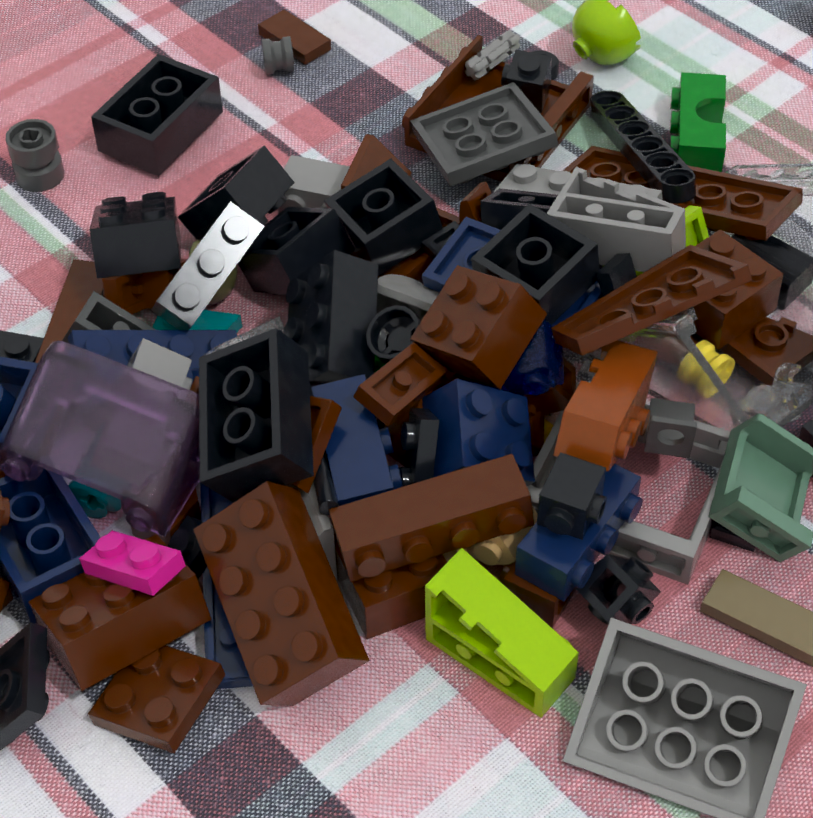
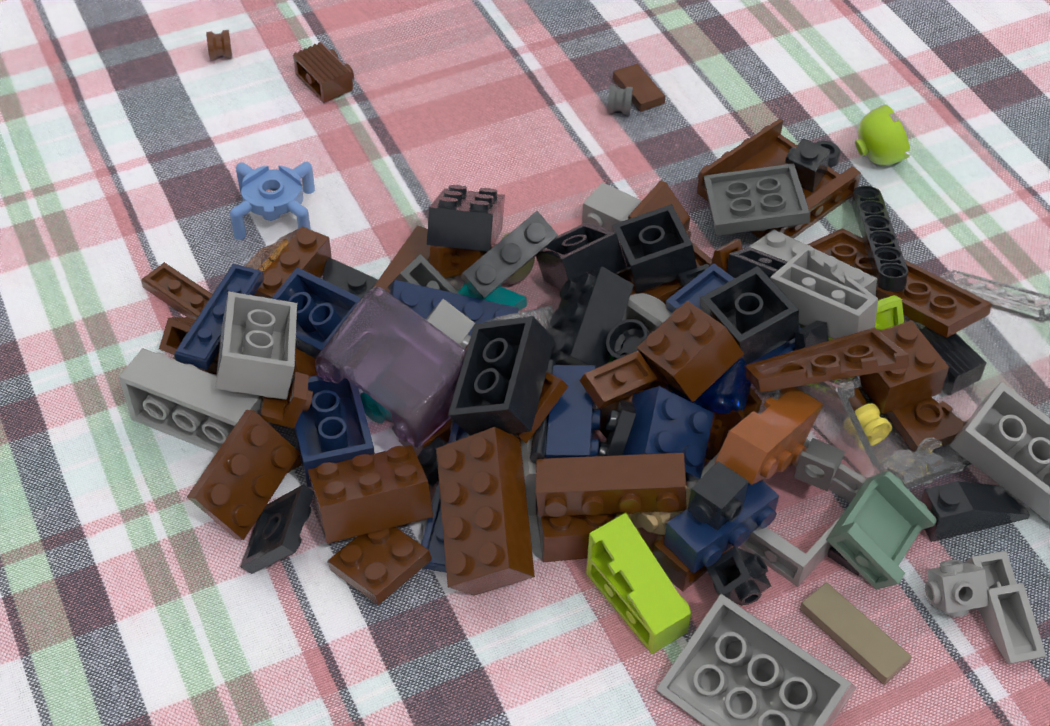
camera: 15 degrees right, 0 degrees up
(35, 155) = (412, 138): dark grey wheel -> none
(132, 562) = (386, 460): dark pink plate -> none
(157, 114) = (513, 127): black brick -> none
(252, 184) = (558, 203): black brick -> none
(492, 55) = (787, 136): light grey axle -> none
(698, 120) = (935, 229): green arch -> none

